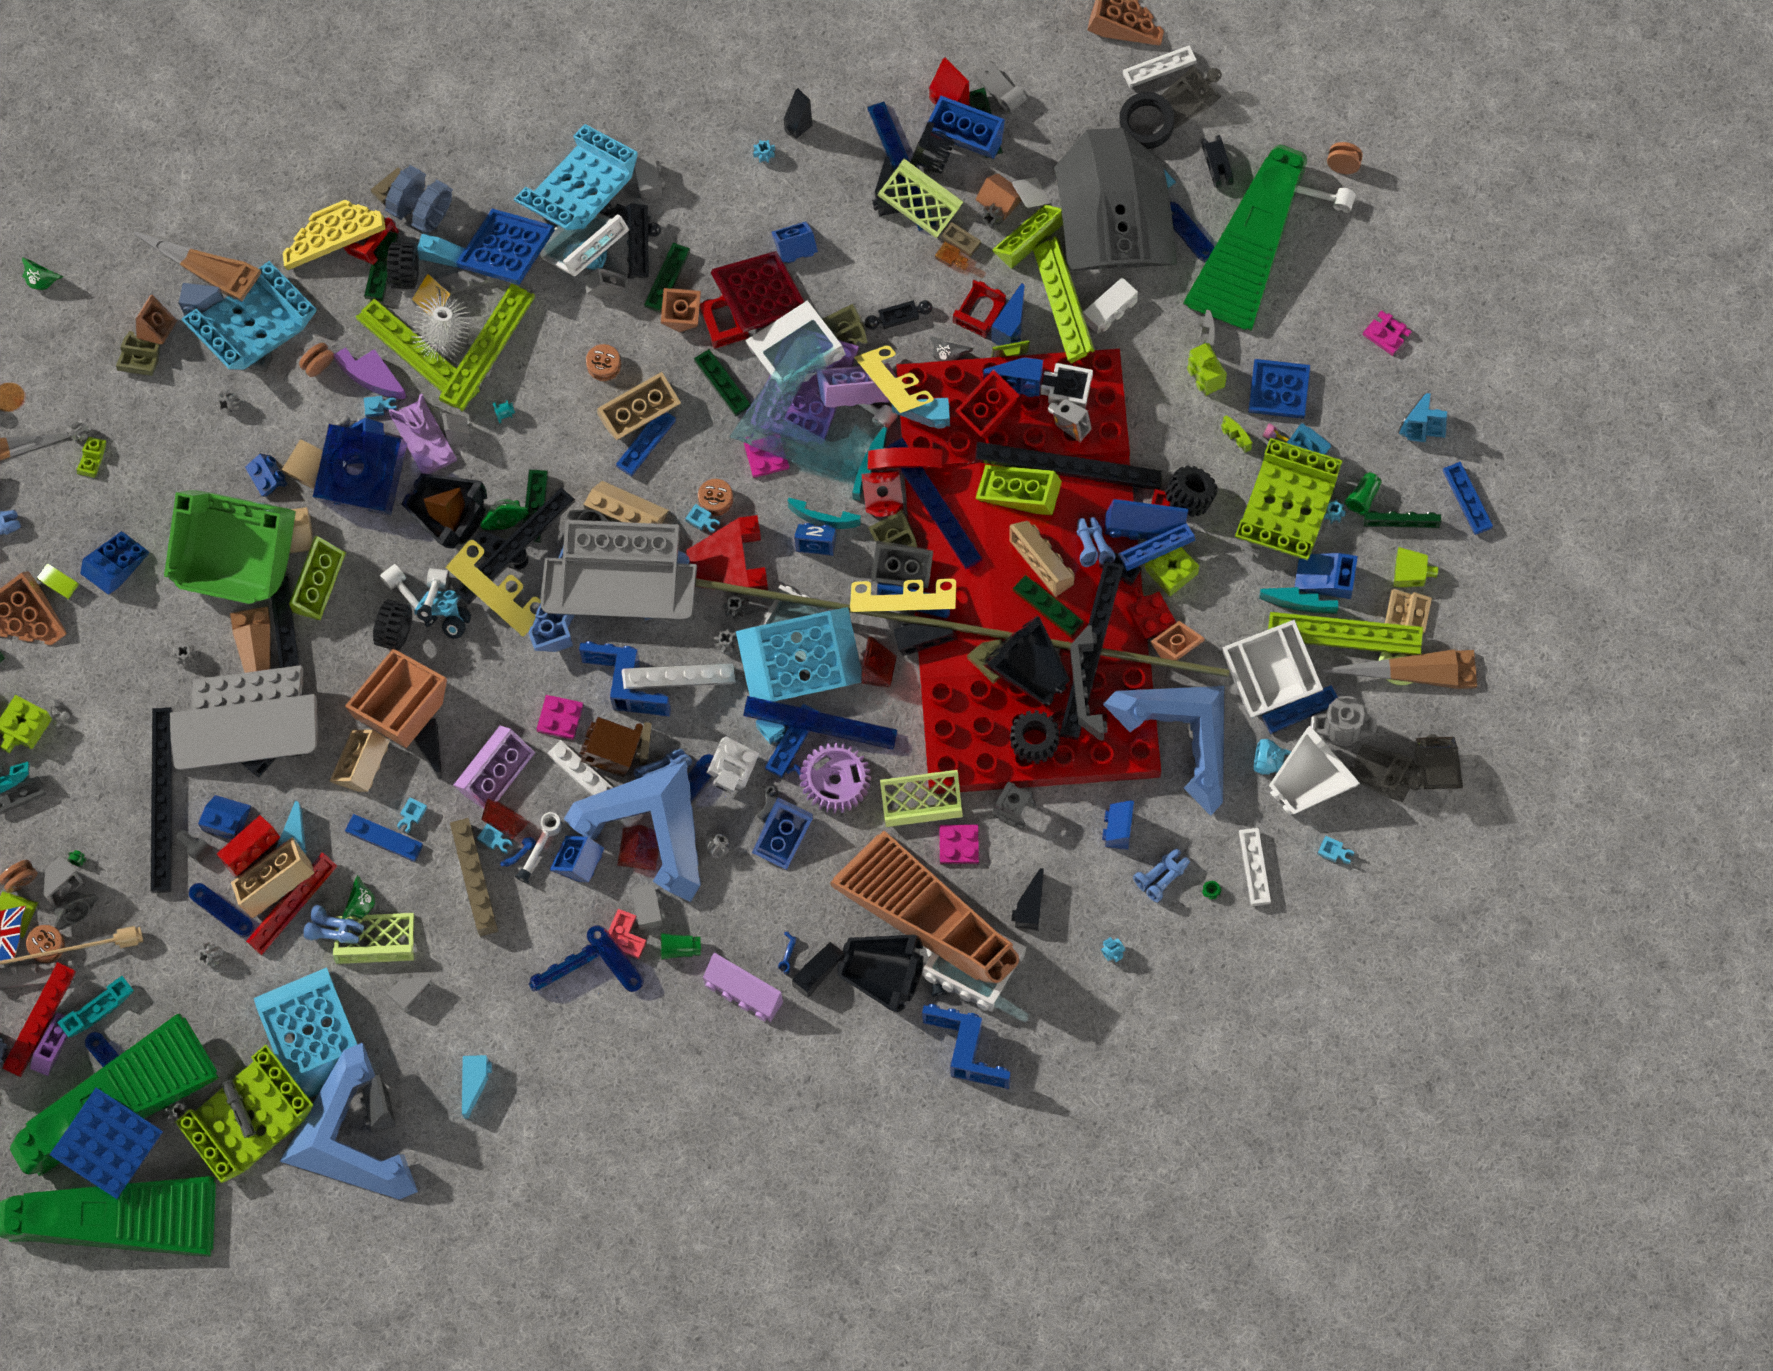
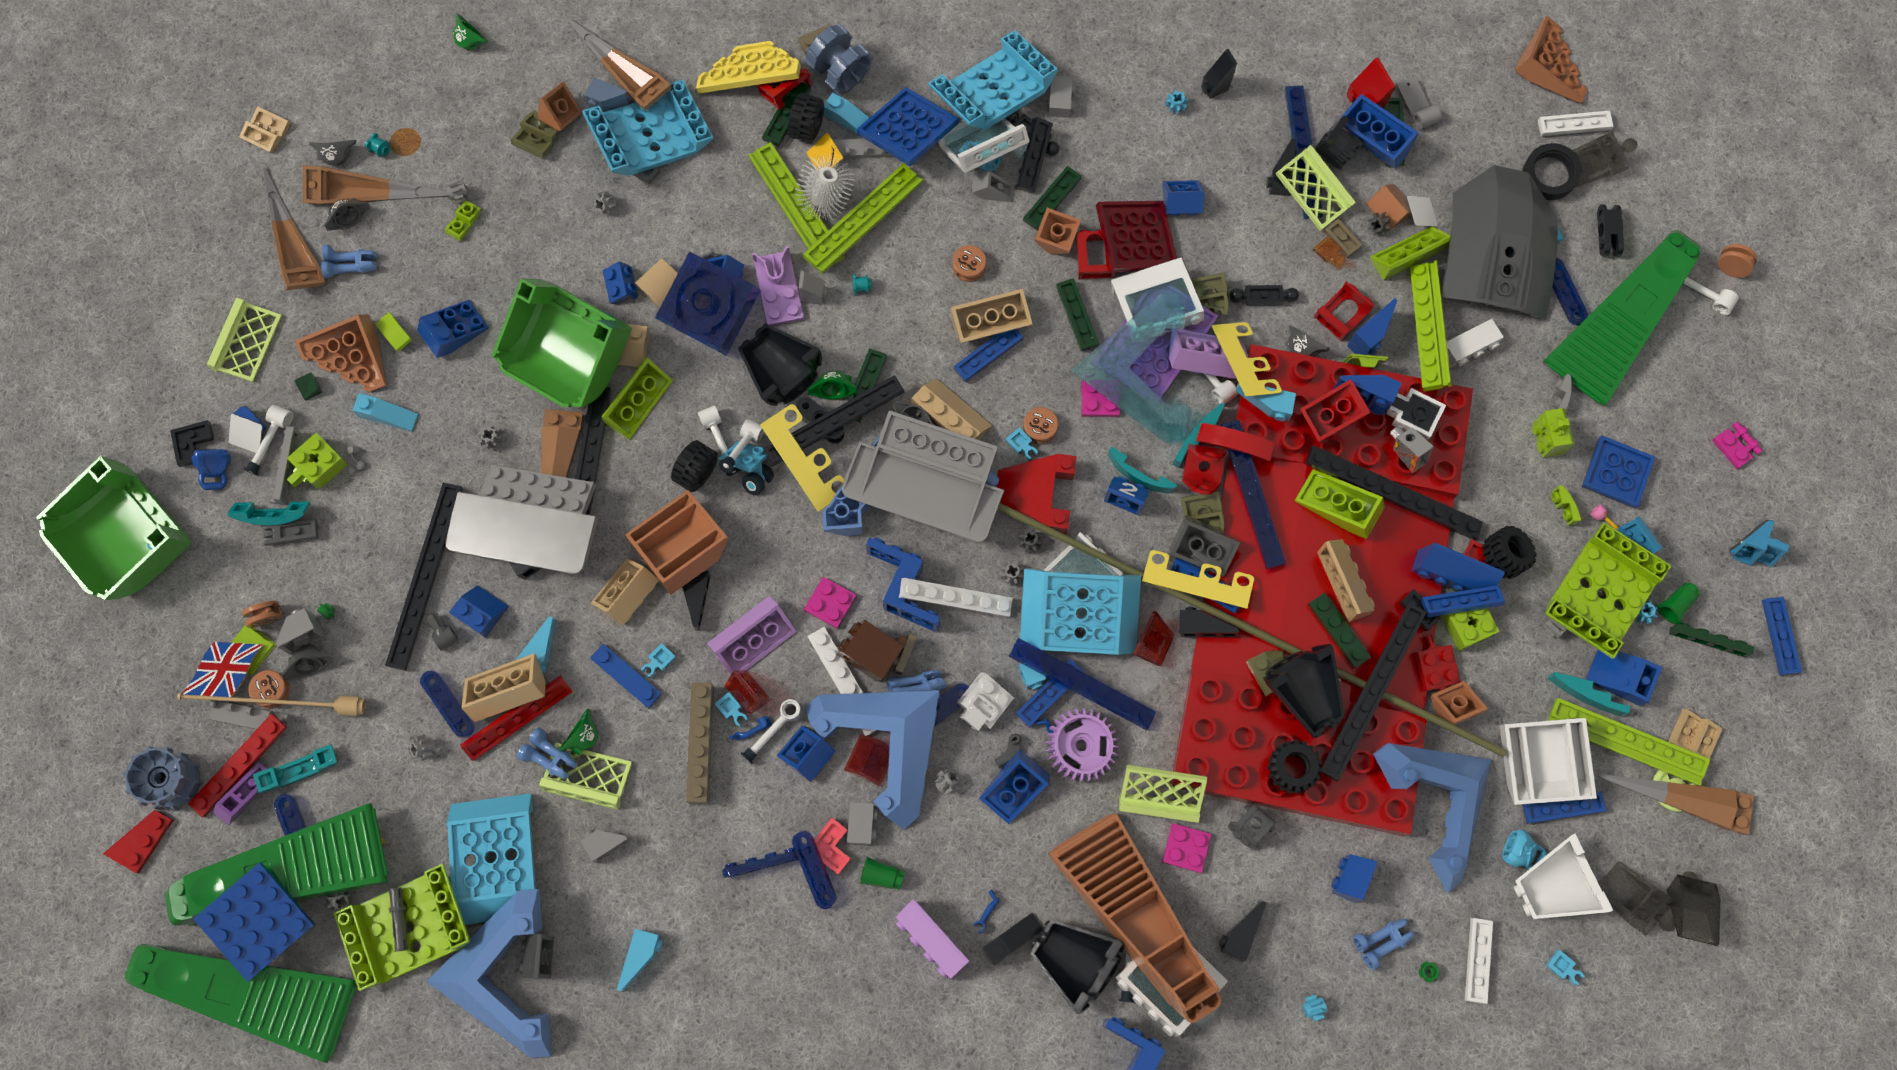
camera: 10 degrees right, 5 degrees up
(73, 659) = (384, 412): none -> medium azure slope
(248, 845) = (489, 649): red slope -> none
(316, 359) = (699, 185): nougat head -> none
(370, 373) = (746, 212): medium lavender slope -> none
(375, 405) = (743, 245): medium azure plate -> none
(446, 508) = (780, 364): reddish brown slope -> none
(1090, 554) = (1396, 591): medium blue piece -> none
(1093, 723) = (1360, 774): dark grey slope -> none
(1344, 722) = (1607, 836): light grey container -> none
(1412, 569) = (1710, 693): lime torso -> none

